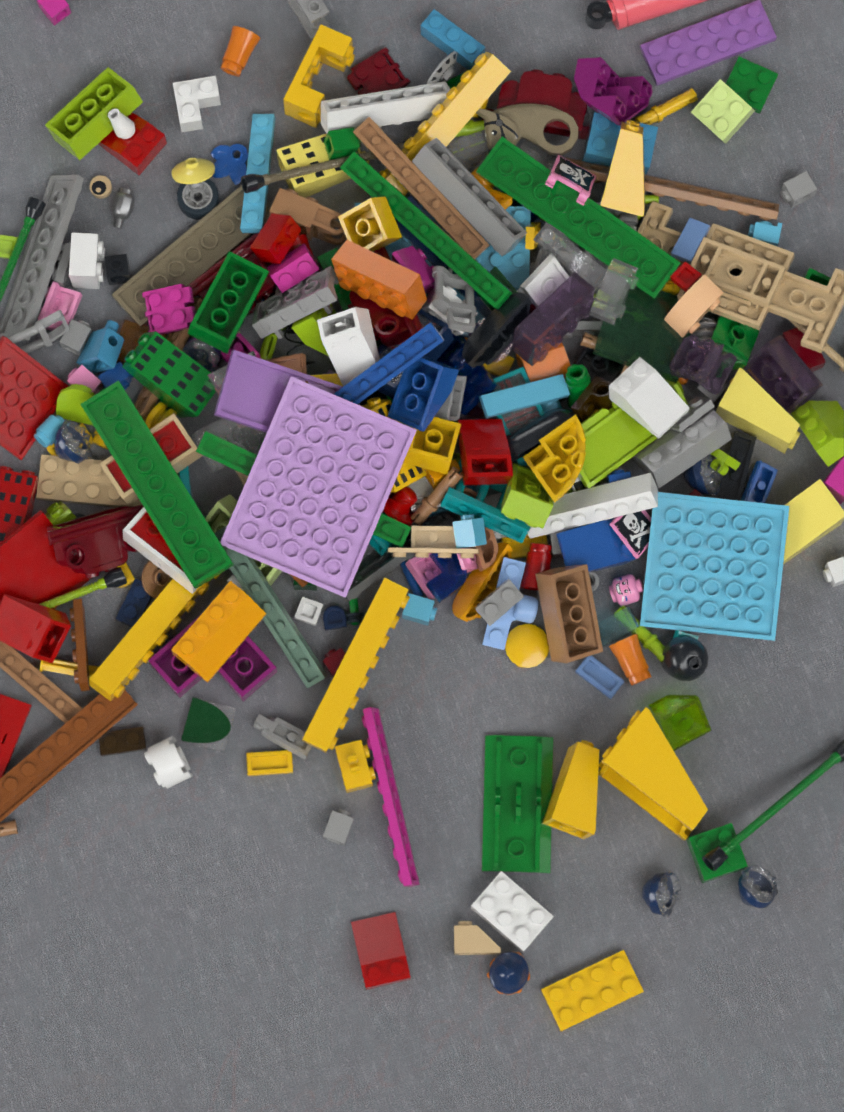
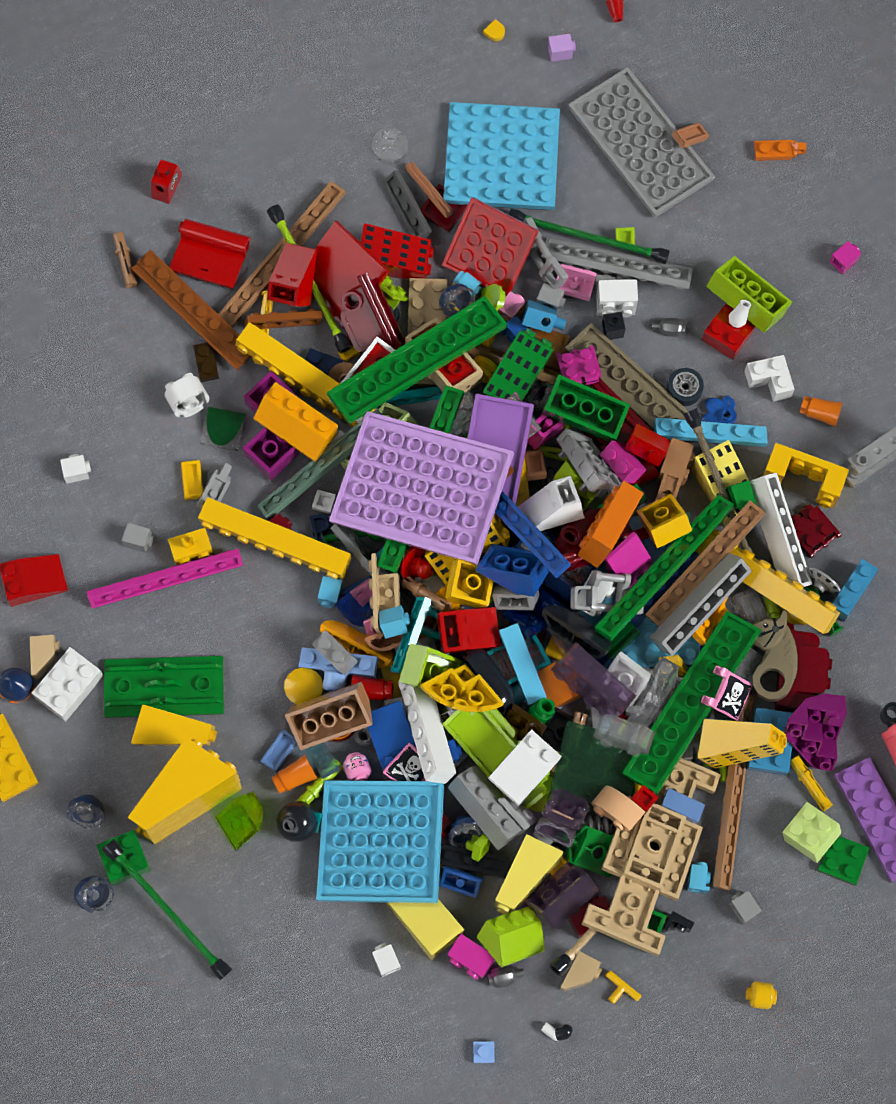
camera: 85 degrees right, 5 degrees down
(100, 187) = (687, 309): tan tile -> none
(193, 171) = (707, 380): light yellow dish -> none
(247, 898) = (75, 468): none -> white brick
(812, 258) = (680, 923): none -> black bracket

